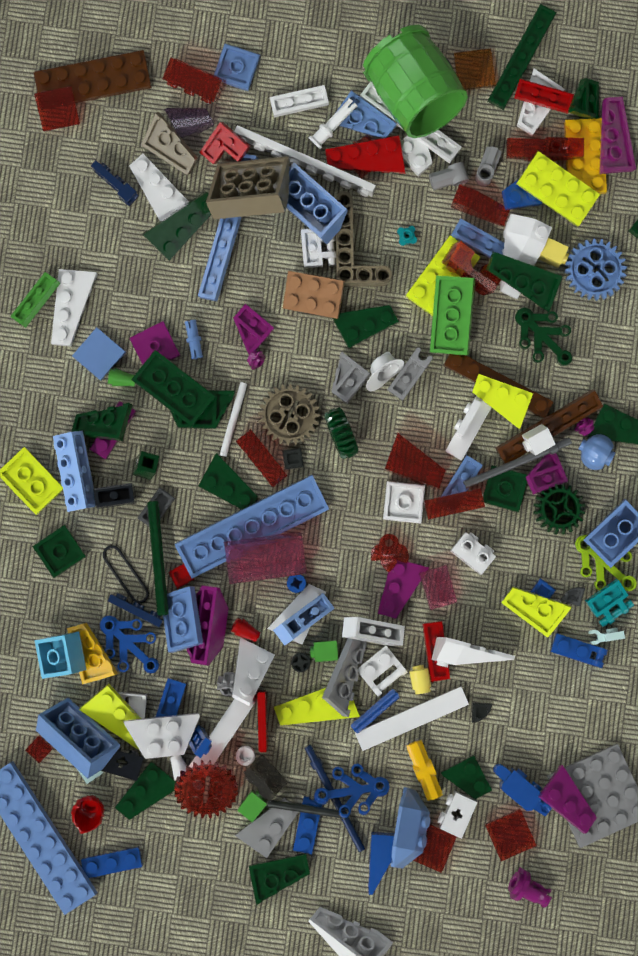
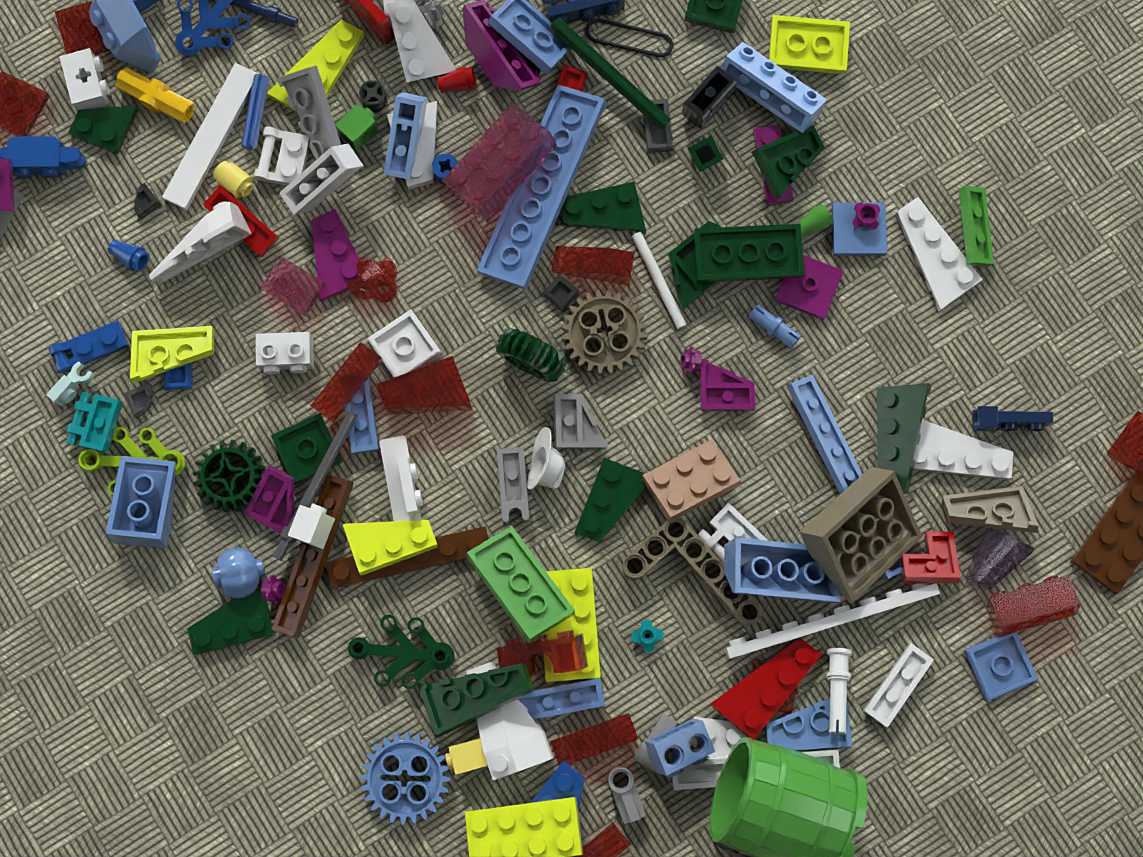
camera: 140 degrees right, 5 degrees down
(89, 350) = (872, 210): none -> magenta plate
(440, 165) = (678, 740): none -> medium blue brick
(514, 684) = (130, 255): none -> blue cone

